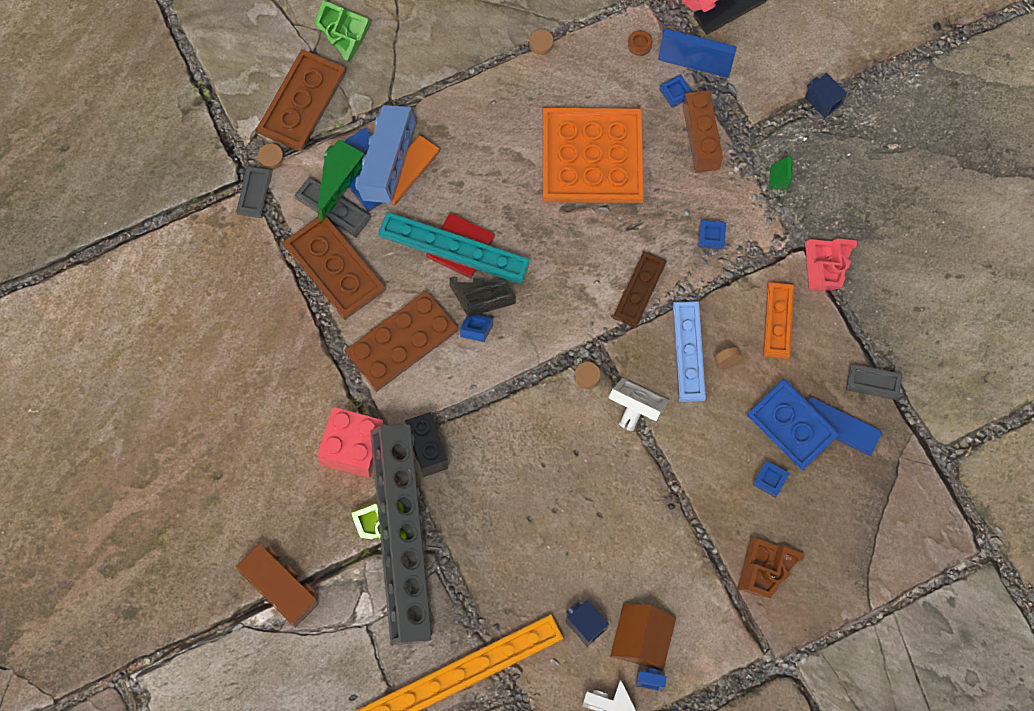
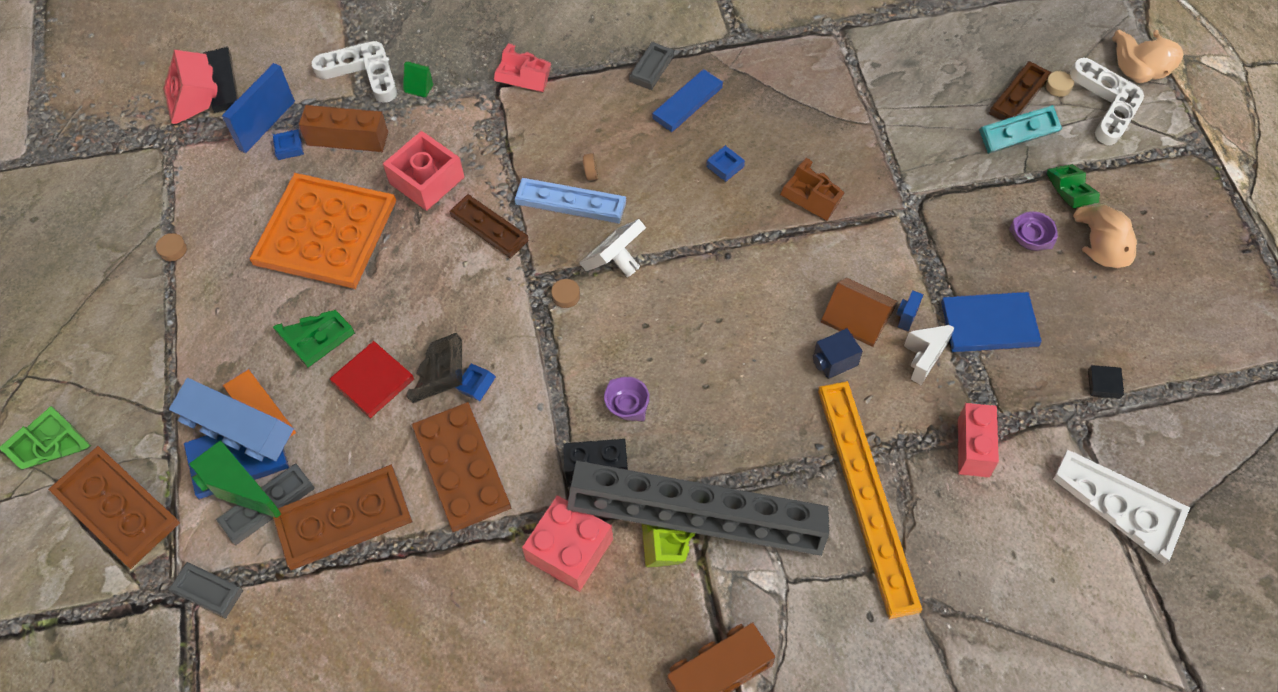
camera: 70 degrees left, 10 degrees down
(270, 156) = (168, 560): medium nougat tile -> none
(454, 247) = (371, 384): teal tile -> none
(486, 187) = (315, 335): none -> green wing
(493, 453) = (627, 398): none -> medium lavender hat
(640, 43) = (219, 161): dark orange tile -> none
(674, 214) = (424, 170): none -> coral brick
(712, 234) = (460, 146): blue plate -> none
(778, 320) = (565, 121): orange tile -> none
(790, 120) = (368, 62): none -> white beam
(793, 424) = (676, 132): blue tile -> none
(825, 94) = (352, 27): dark blue brick -> none

